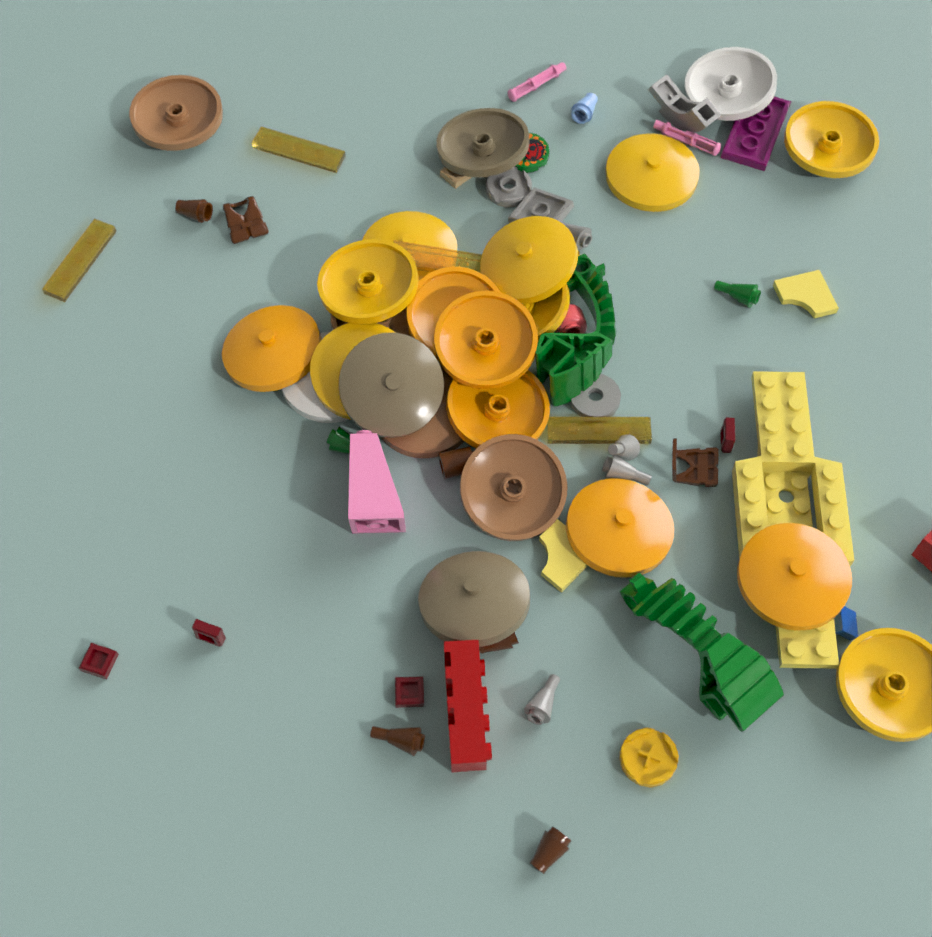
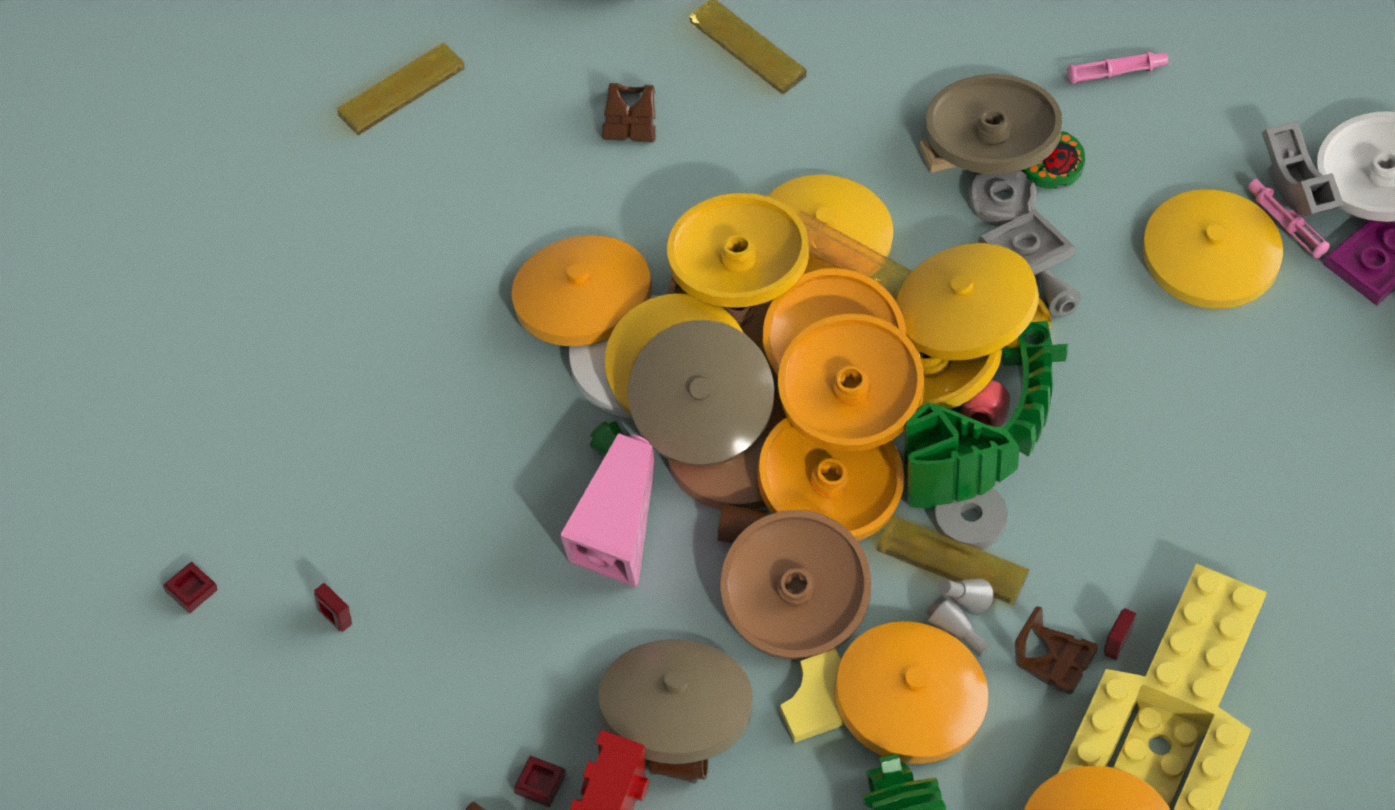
camera: 25 degrees right, 5 degrees down
(198, 209) = (576, 78): reddish brown cone -> none
(584, 108) = (1161, 128): light blue cone -> none
(745, 293) = (1250, 460): green cone -> none
(807, 291) = (1342, 490): light yellow tile -> none

